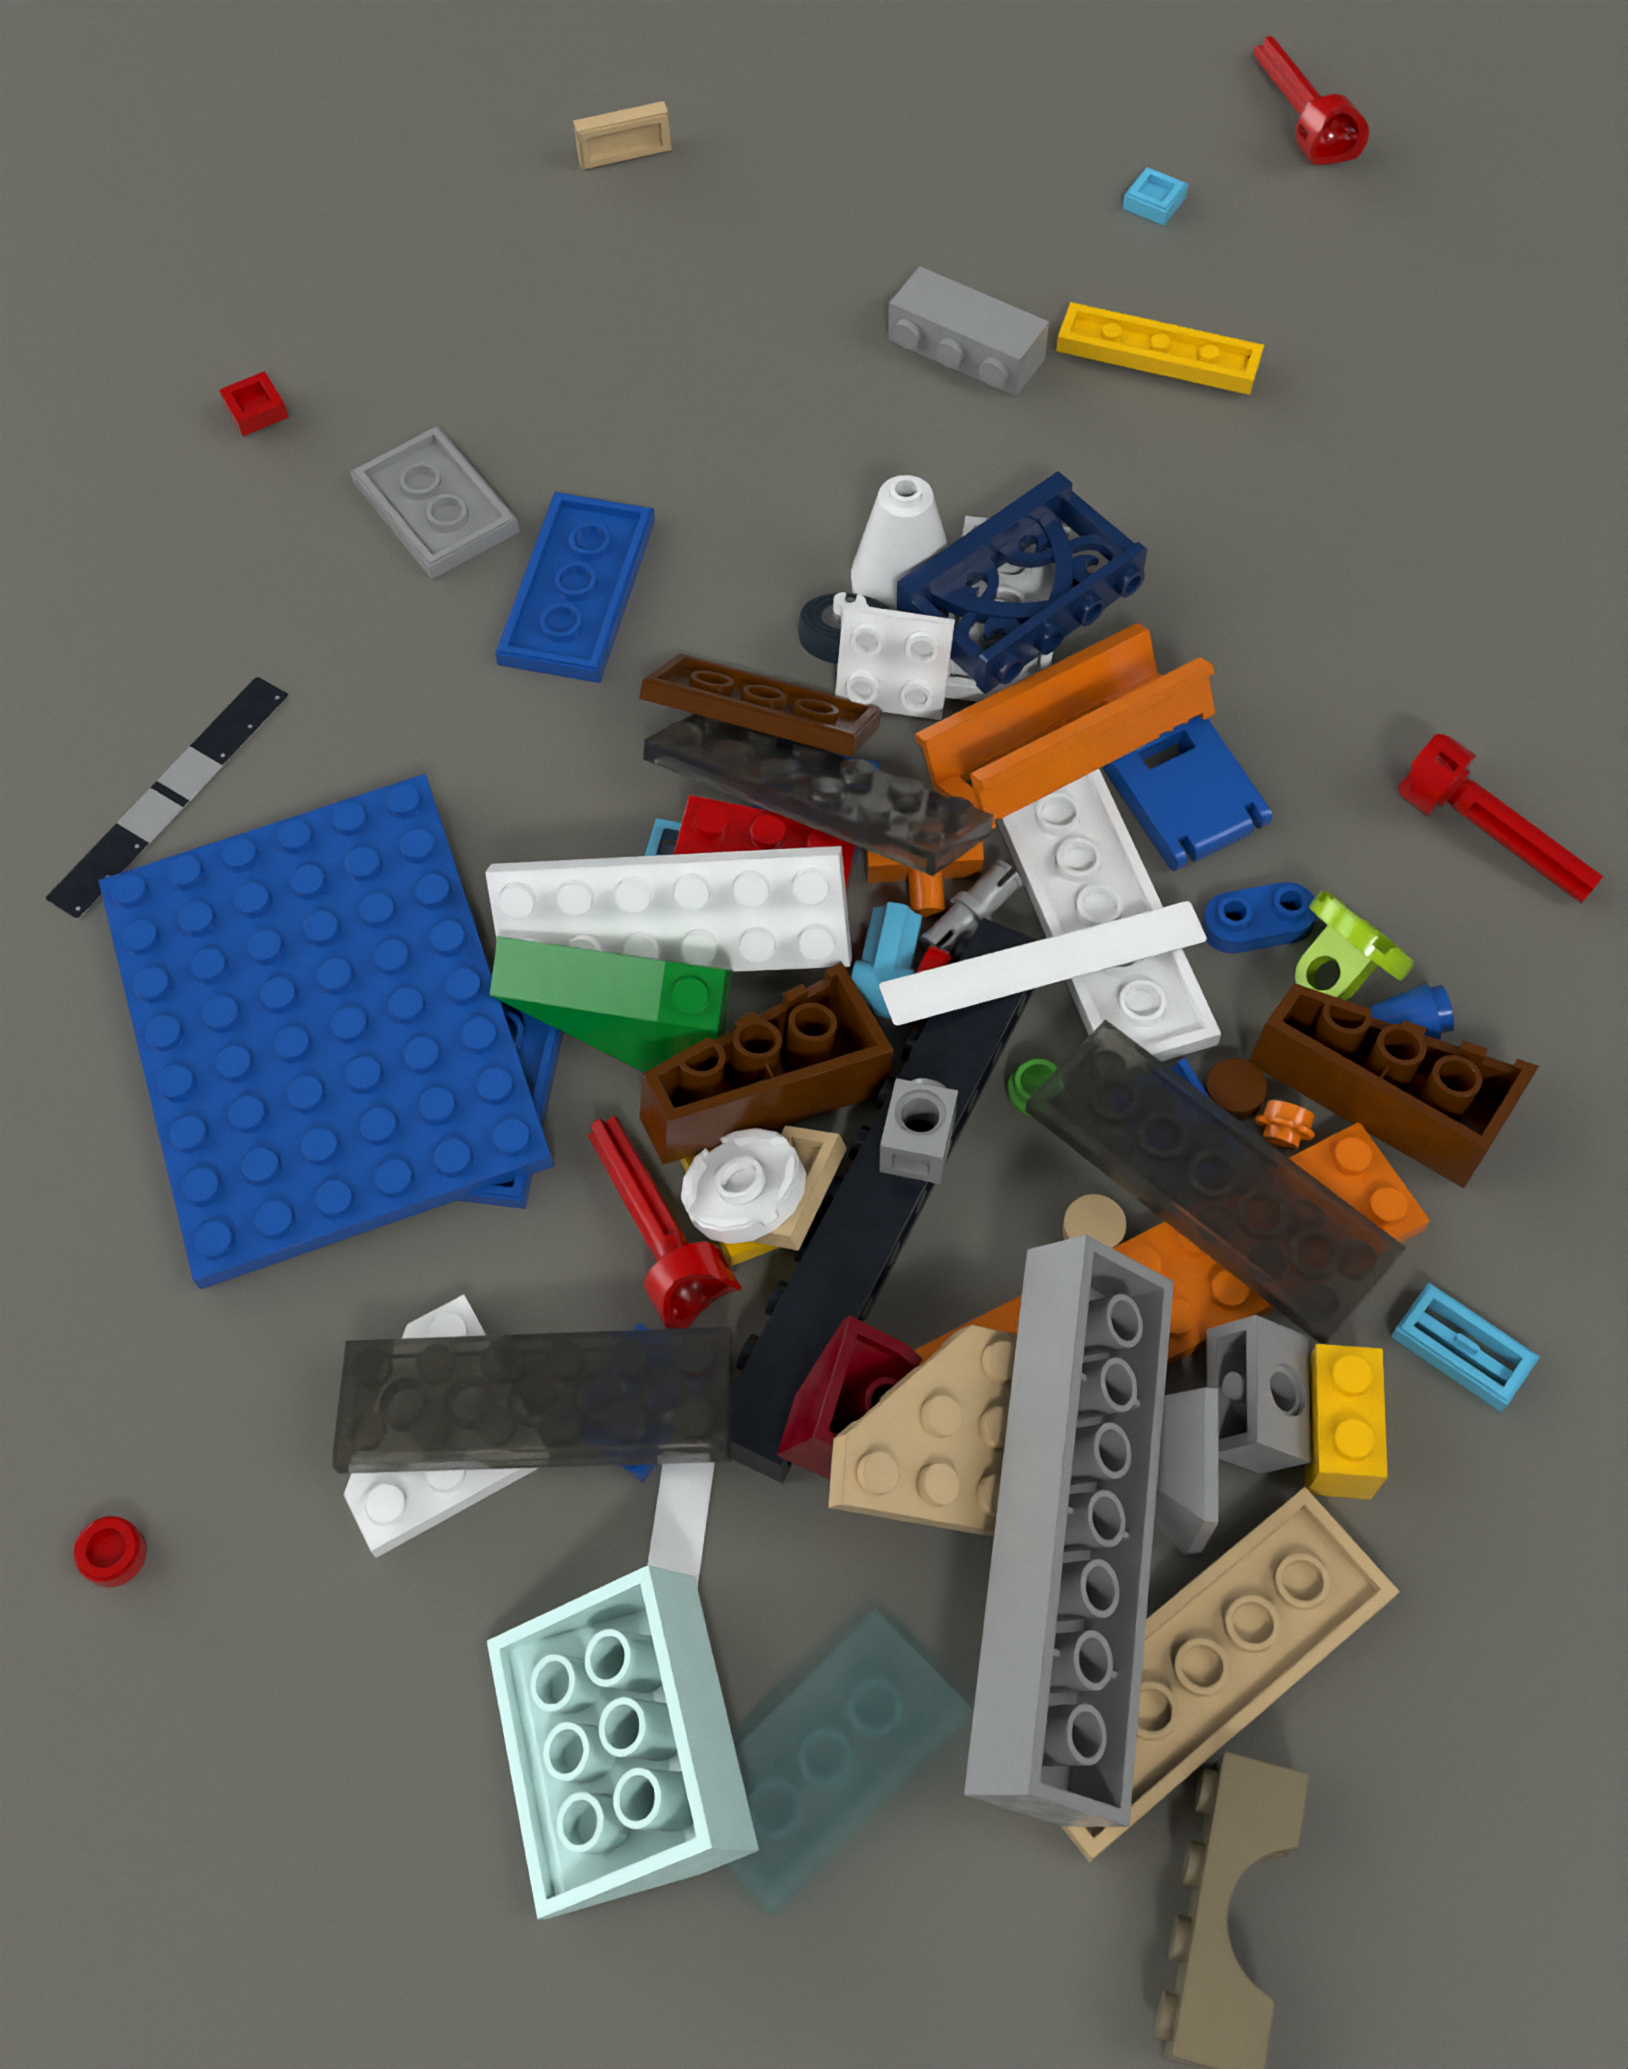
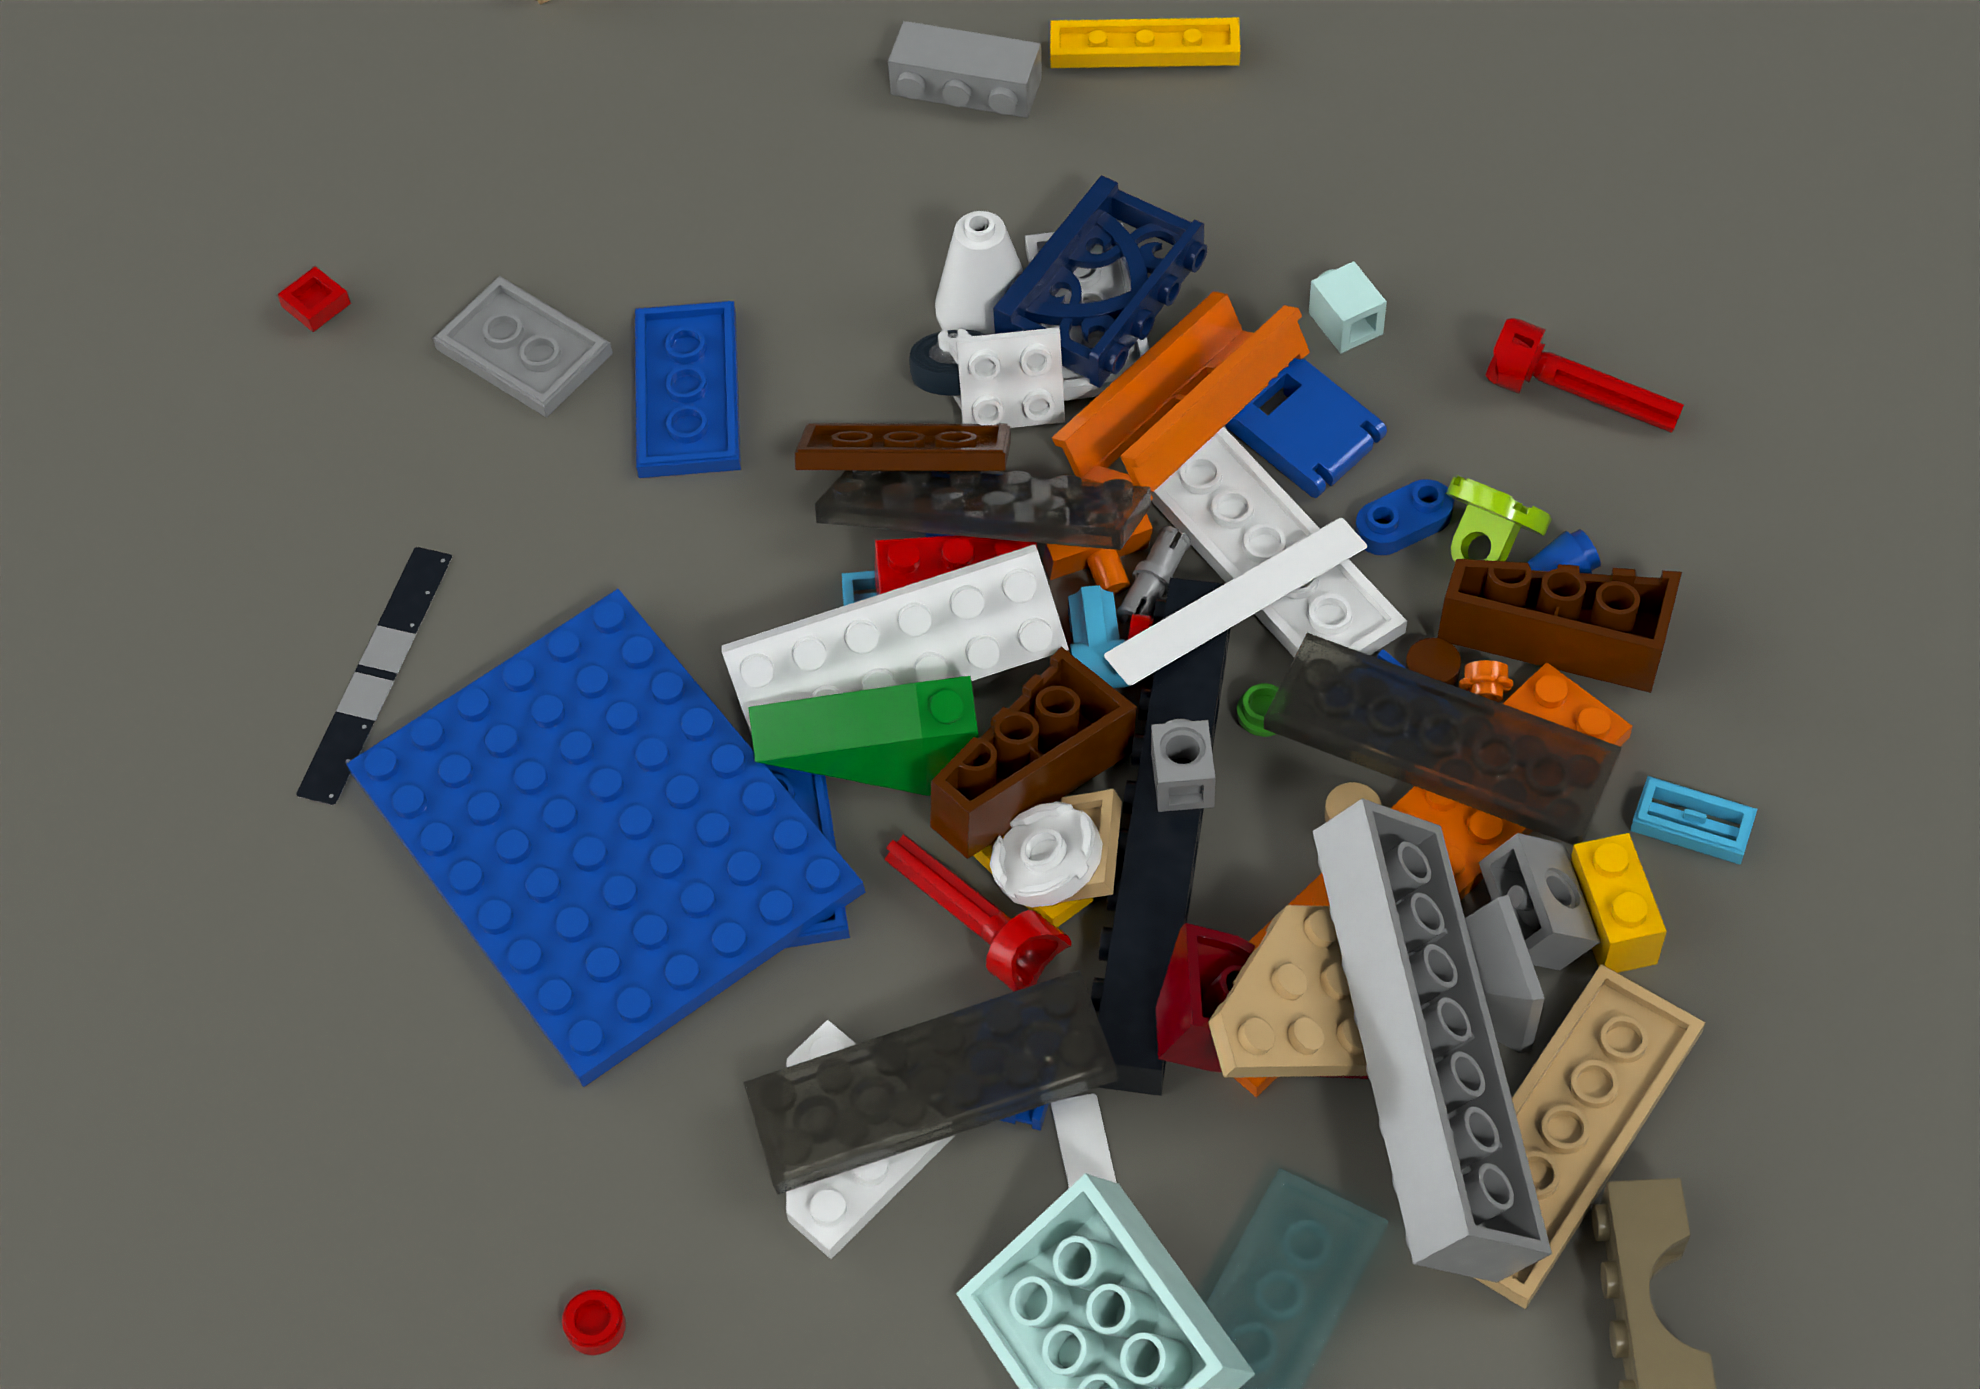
camera: 15 degrees left, 5 degrees down
(1273, 675) = (1347, 307): none -> light aqua brick

